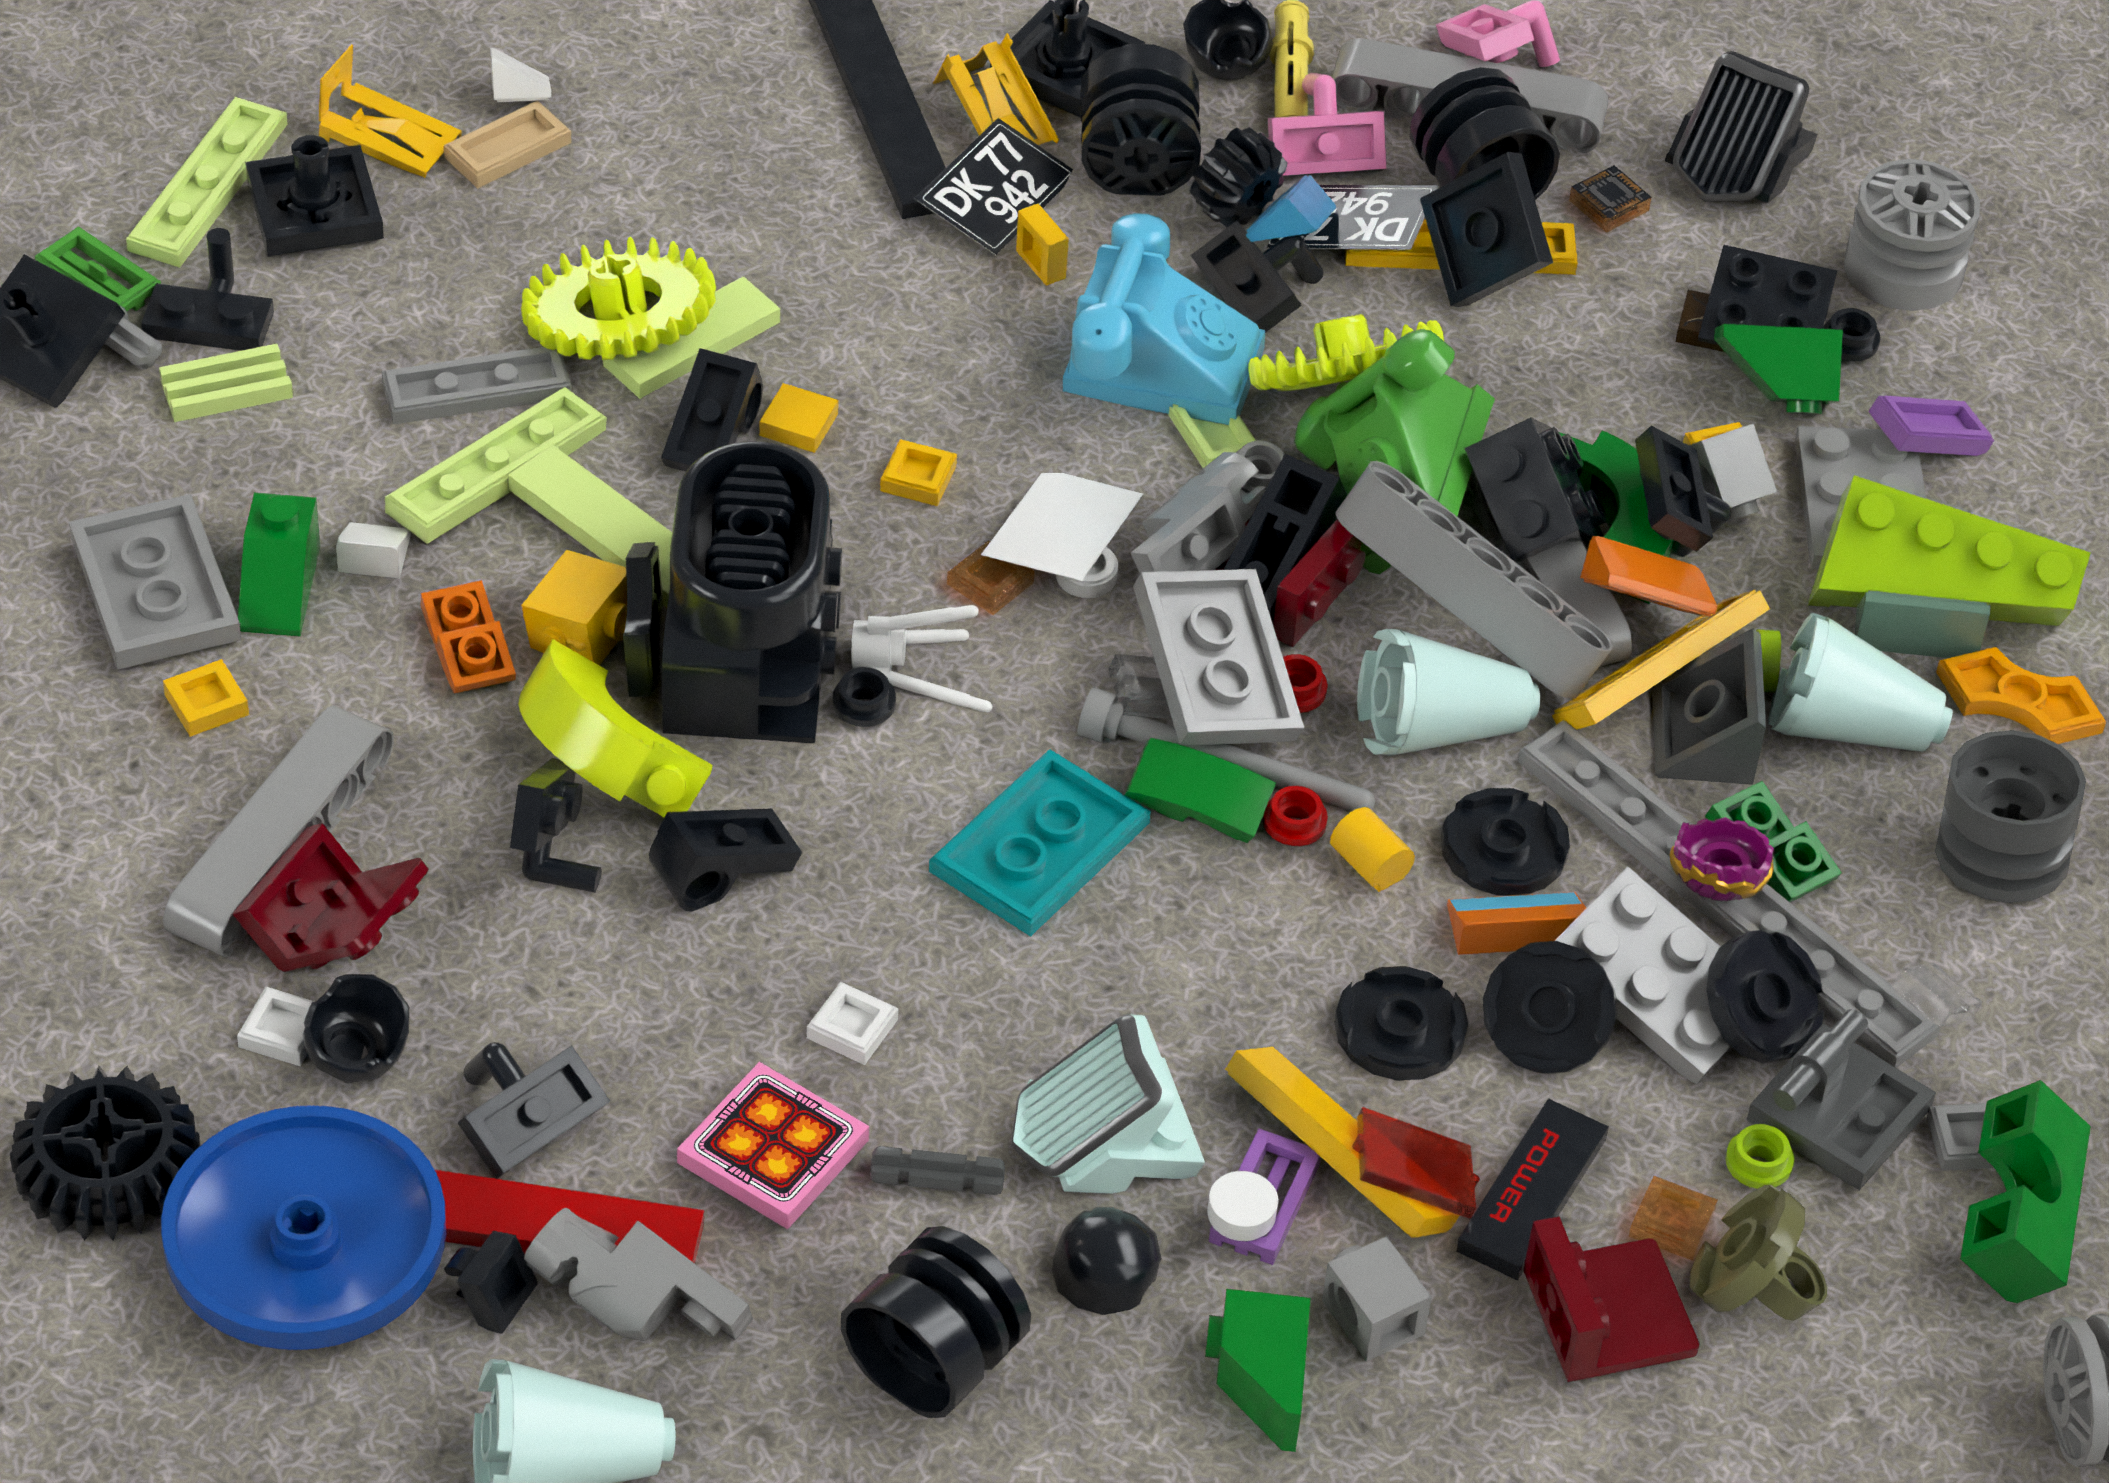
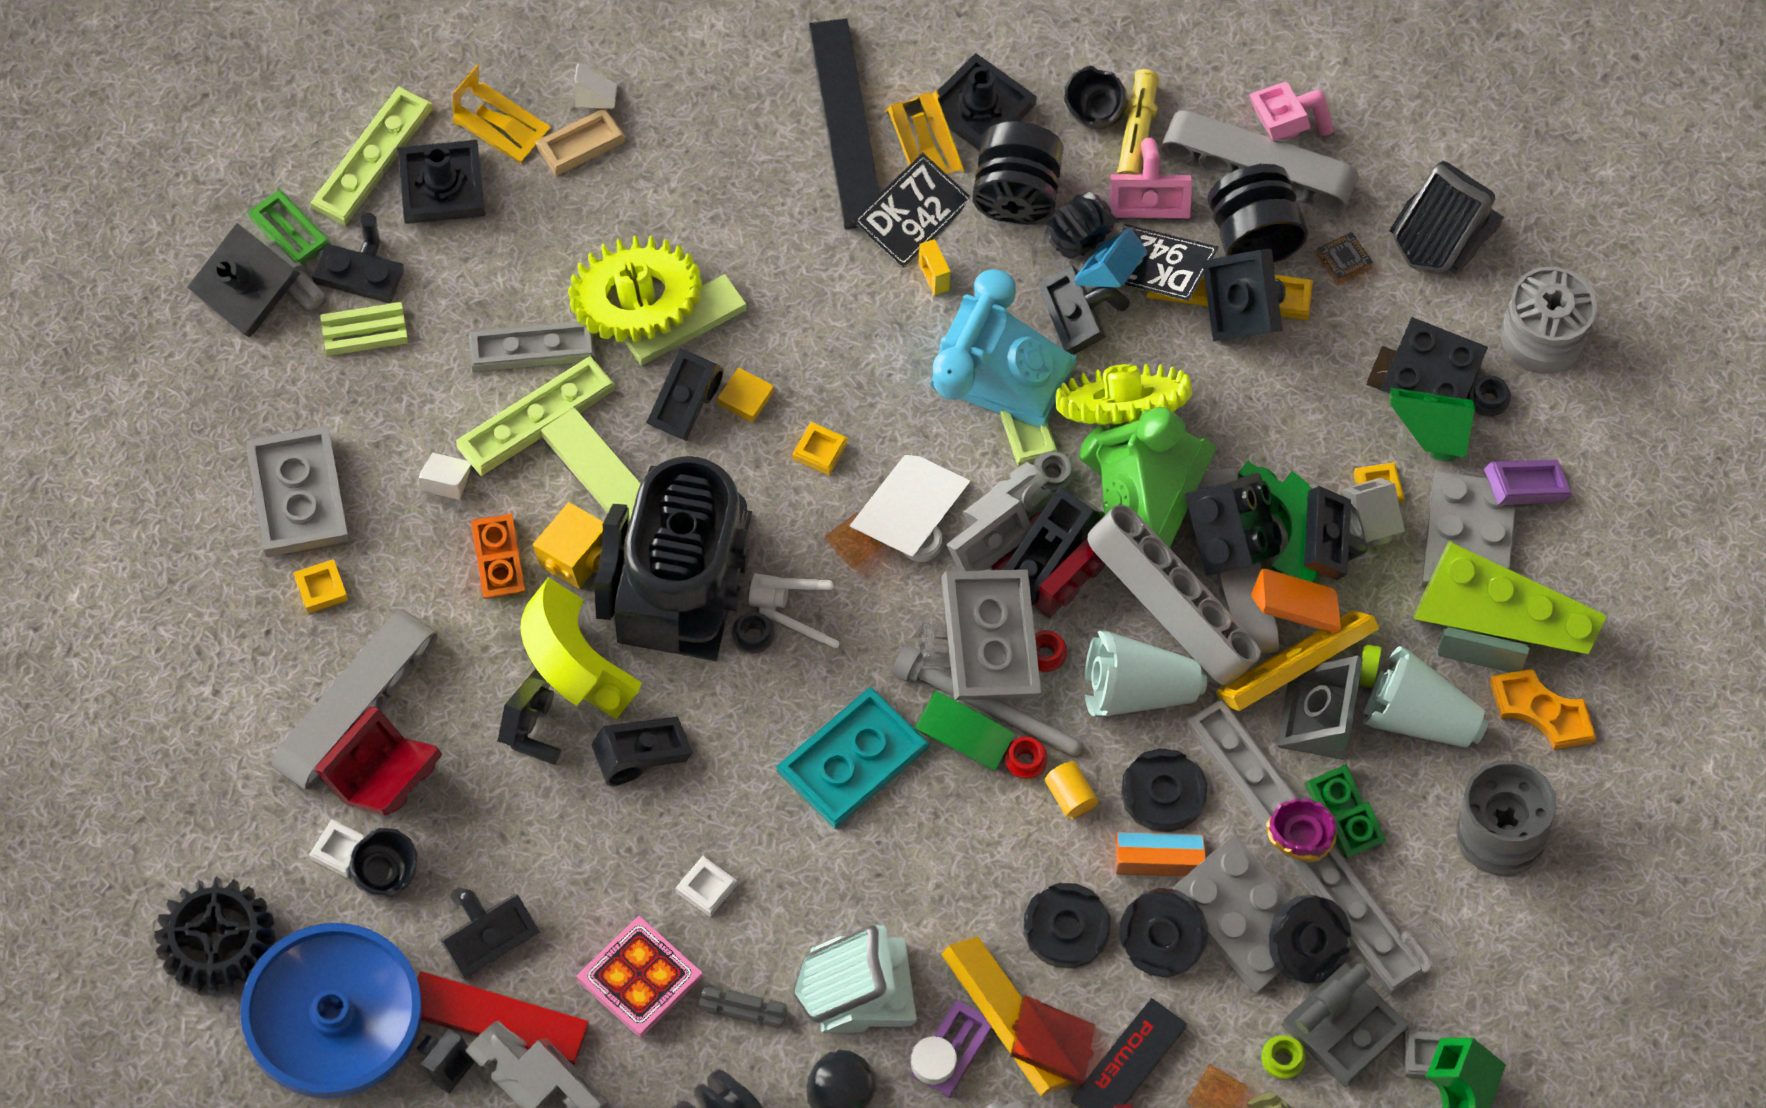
camera: 10 degrees right, 15 degrees up
(278, 563) = (378, 488): green slope -> none

